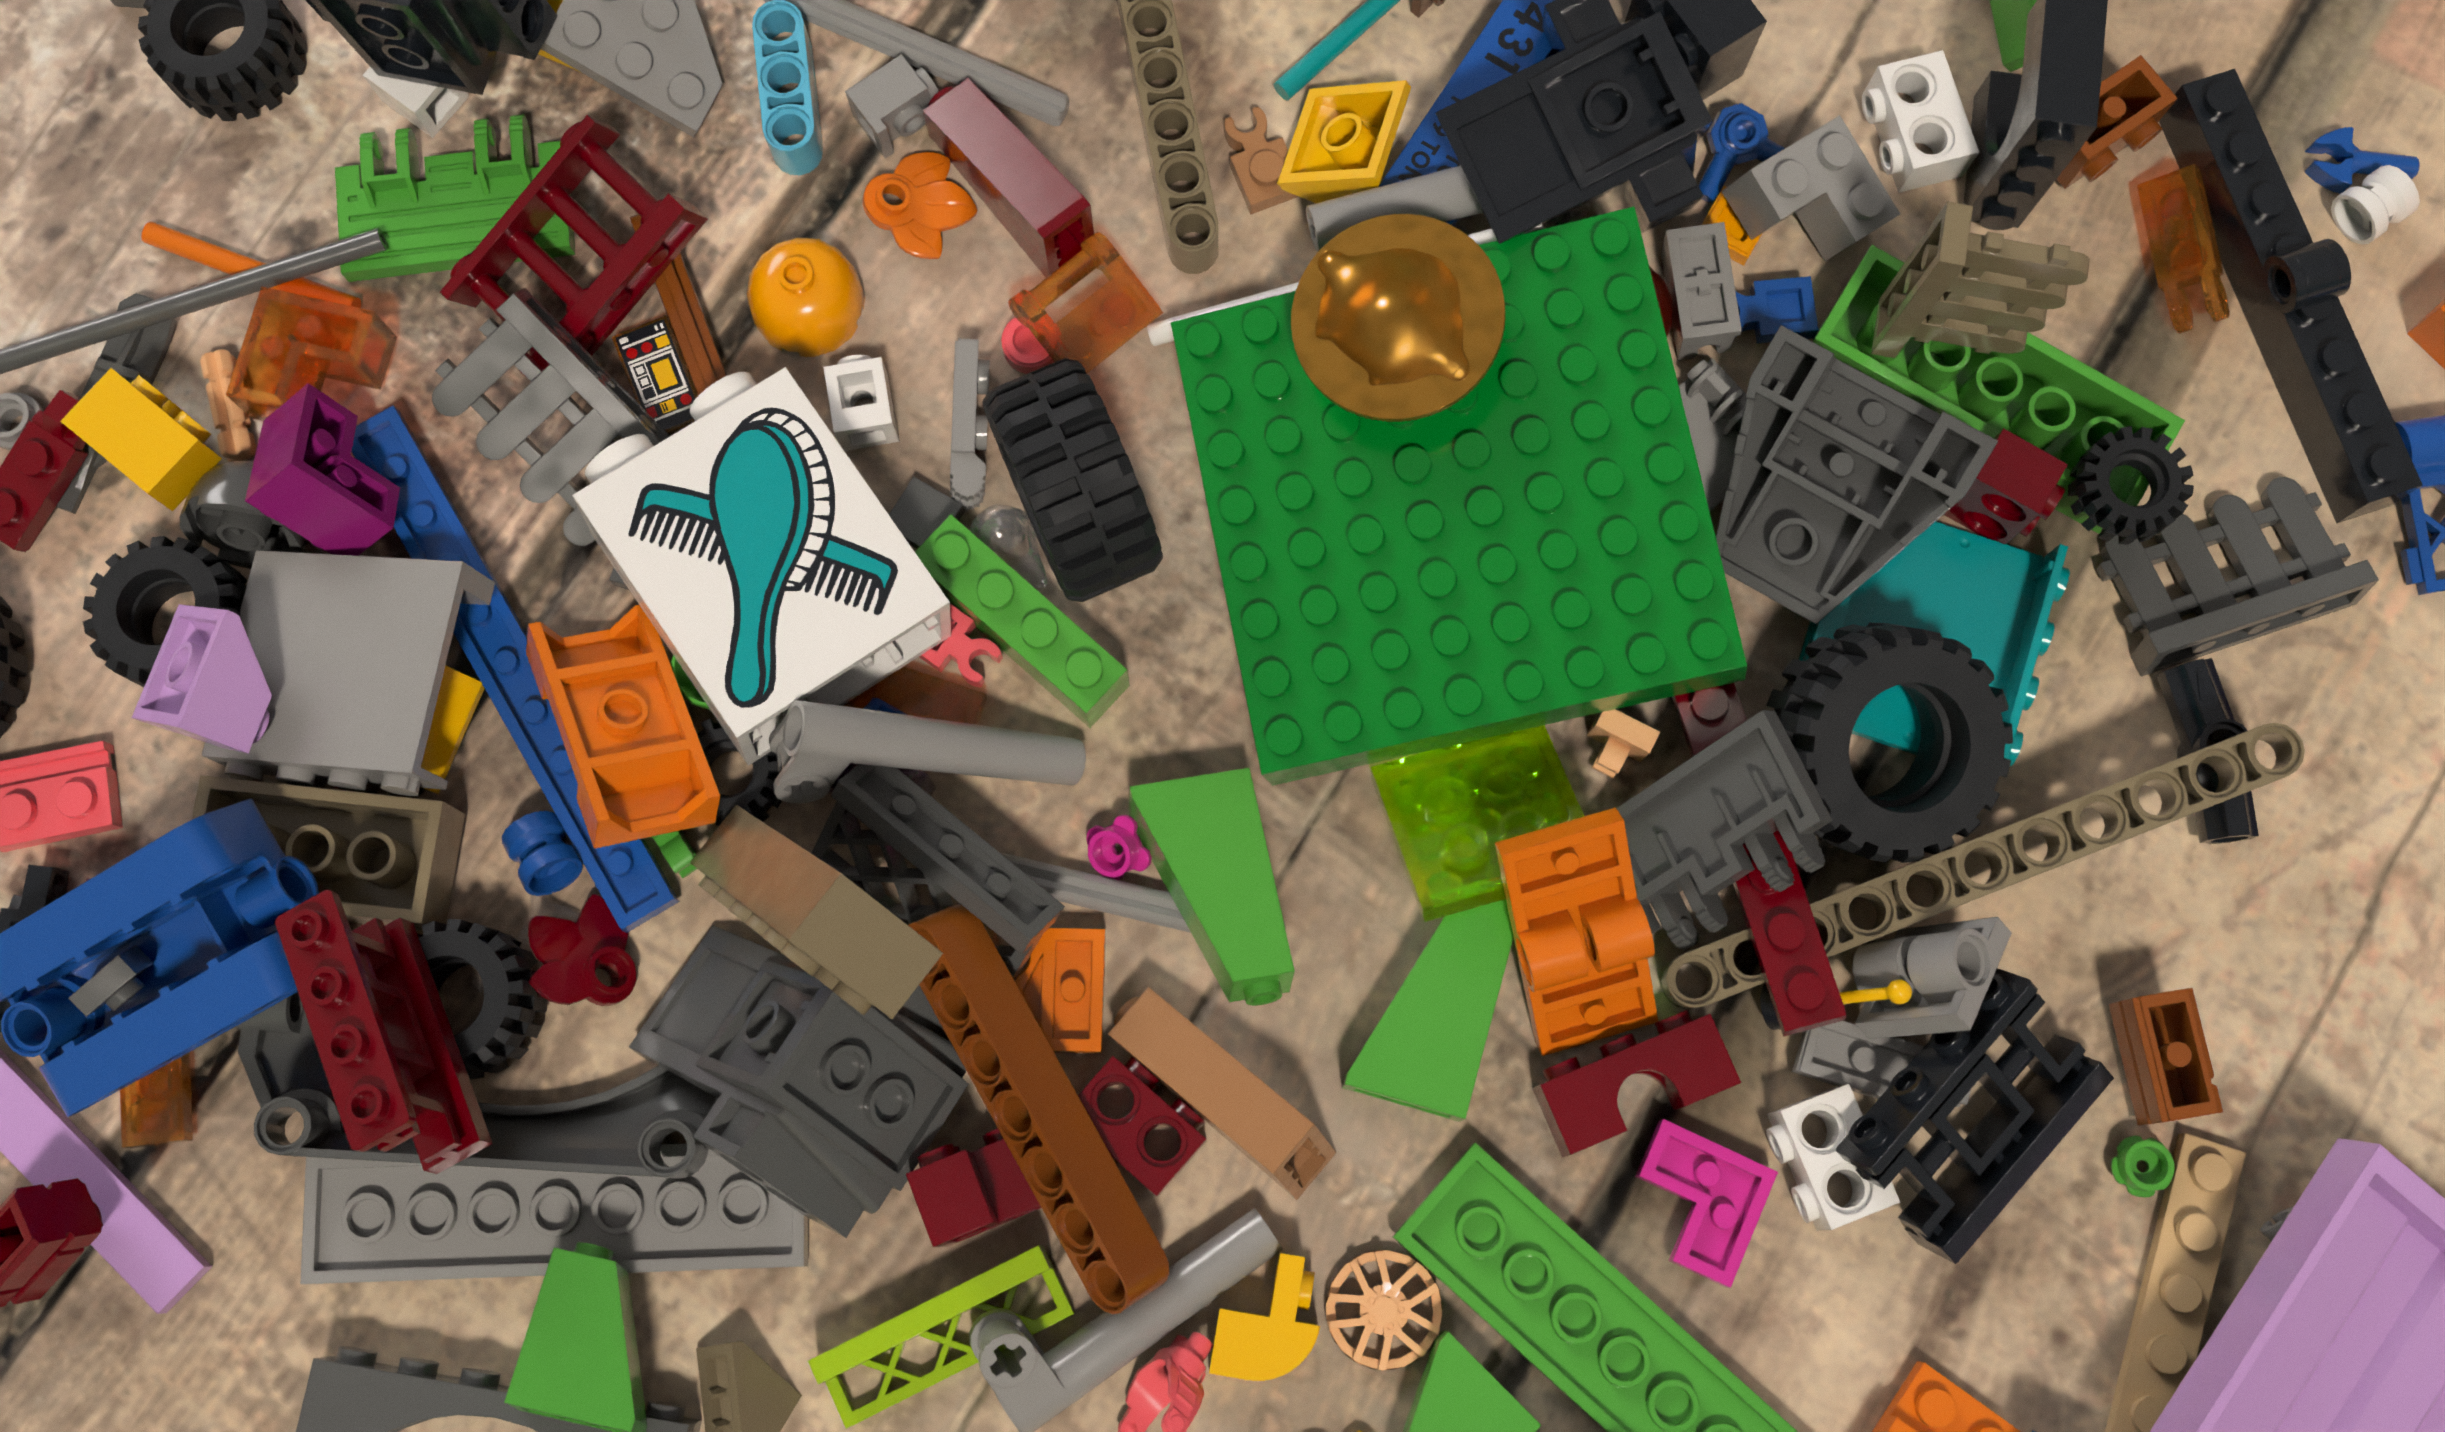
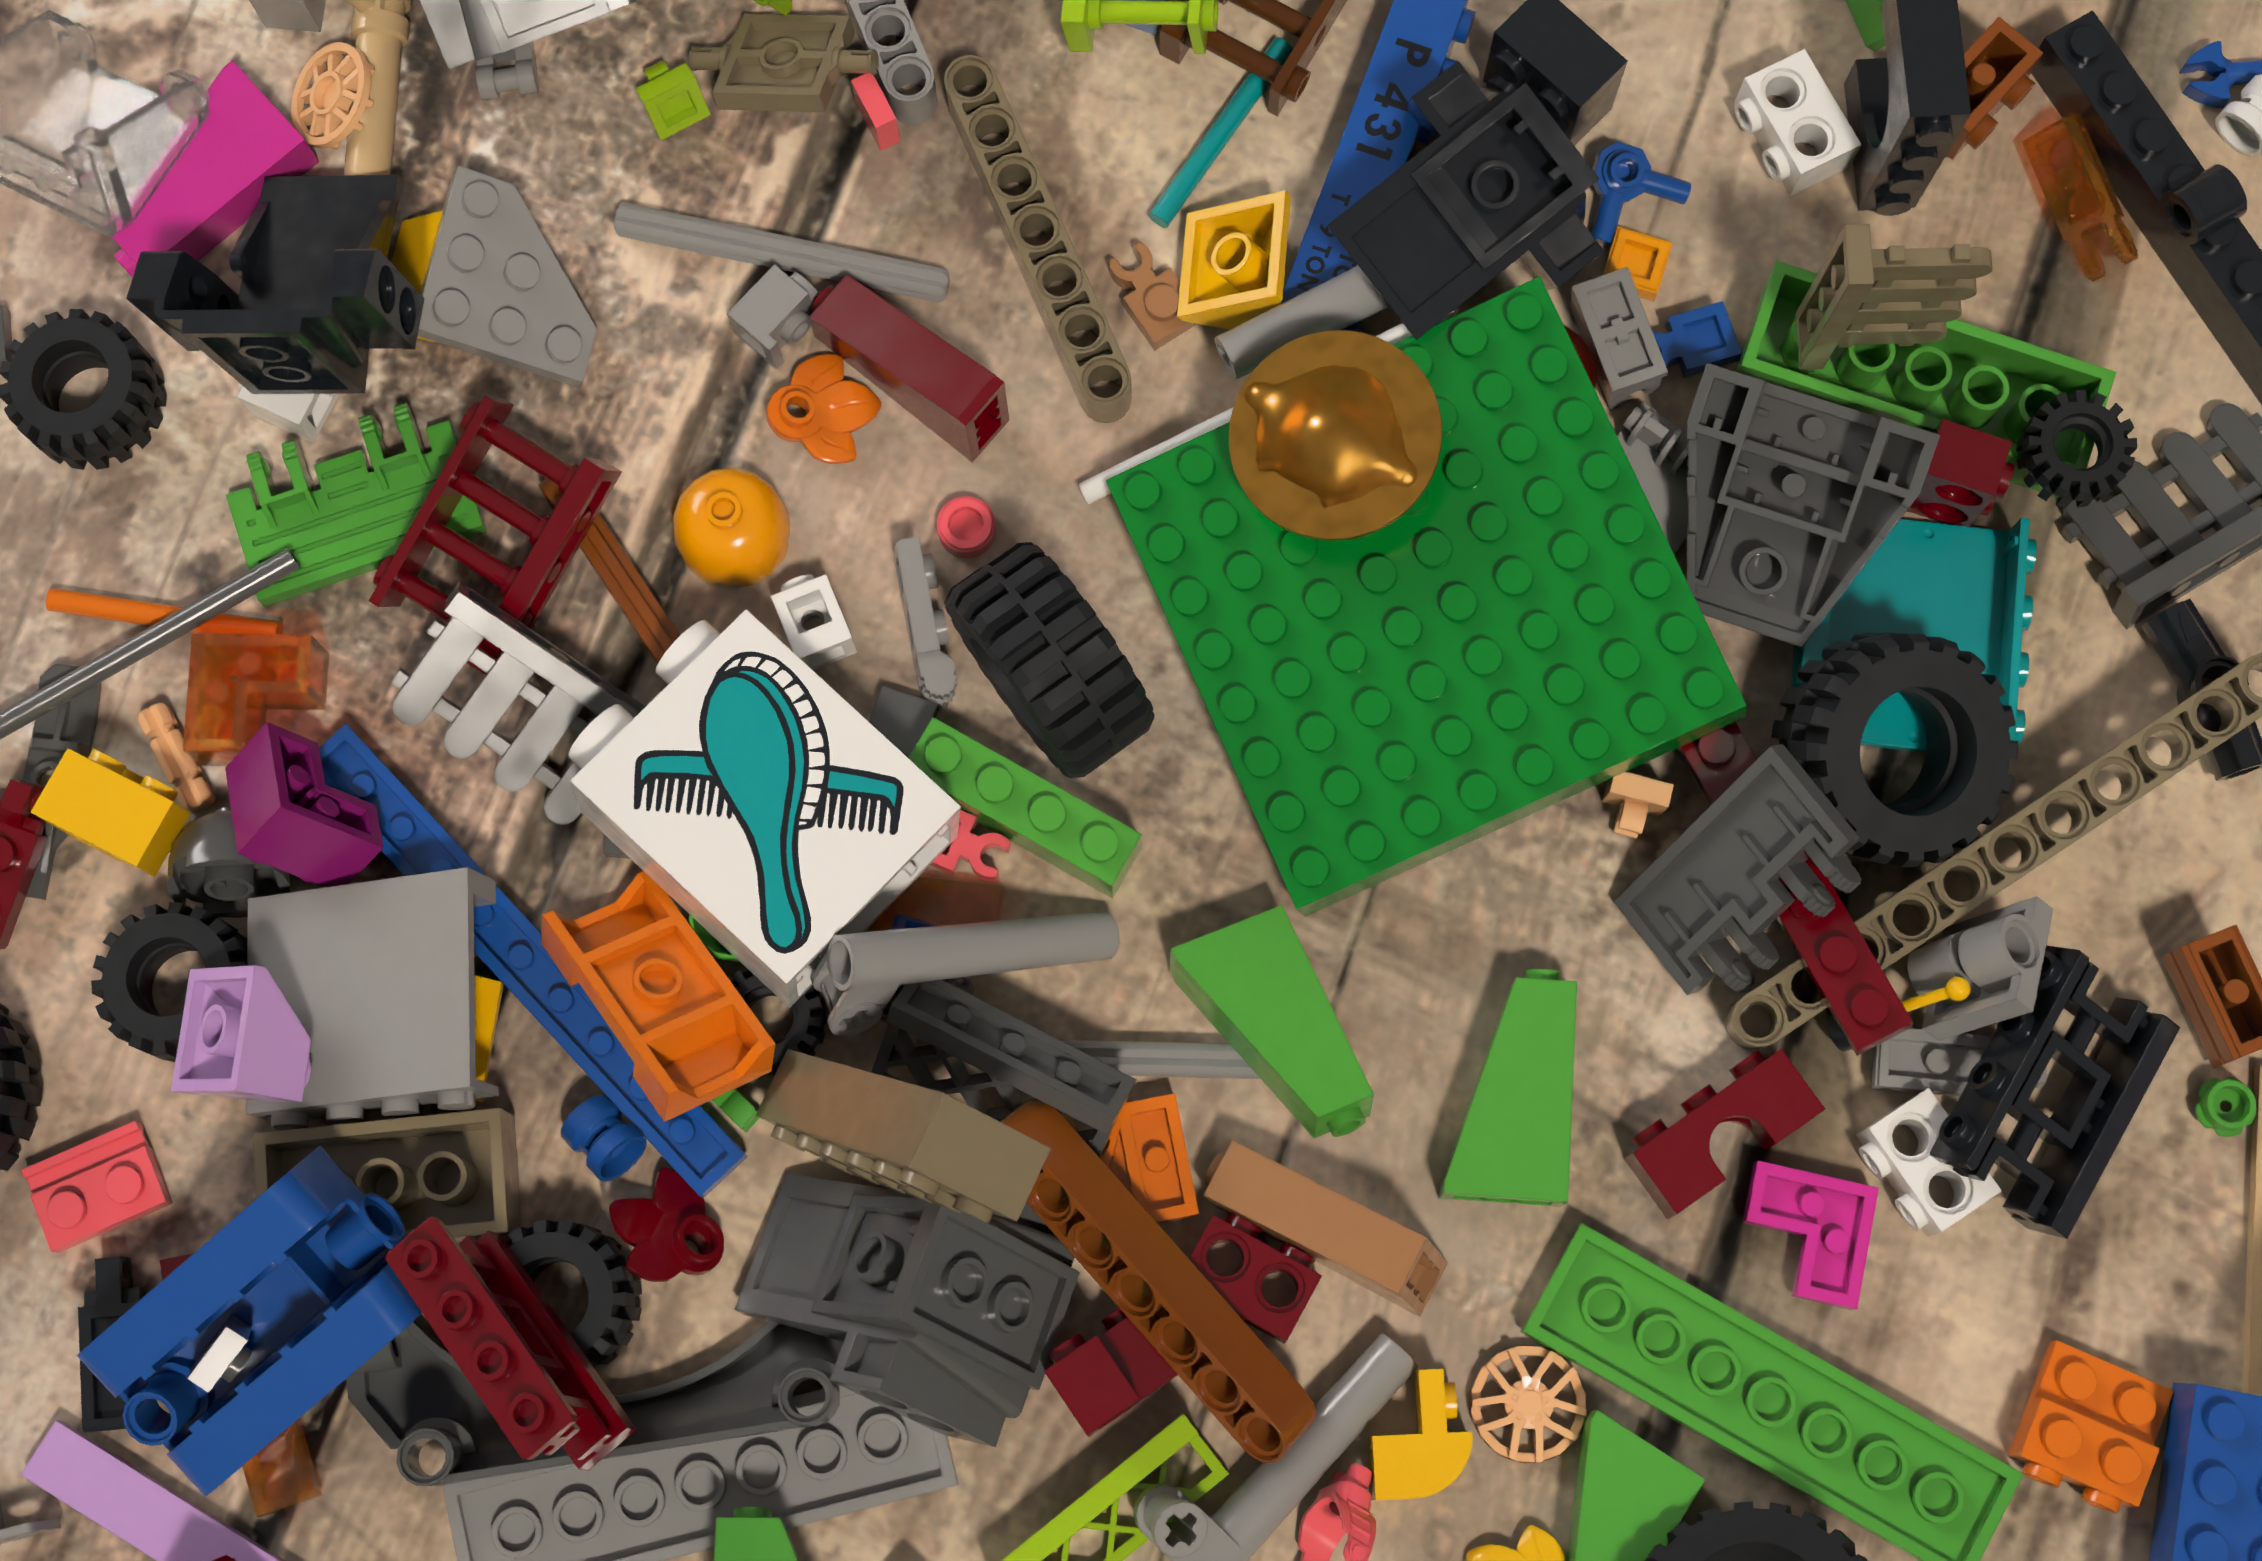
camera: 10 degrees left, 0 degrees up
(657, 373) = (604, 637): tile -> none
(783, 64) = (660, 294): medium azure beam -> none
(1013, 539) = (996, 727): clear animal -> none
(1100, 321) = (1031, 493): clear orange plate -> none
(1104, 854) = (1158, 1022): dark pink plate -> none
(1461, 800) = (1522, 908): clear neon green plate -> none
(1578, 931) = (1638, 996): orange plate -> none
(1822, 182) = (1713, 205): light grey brick -> none

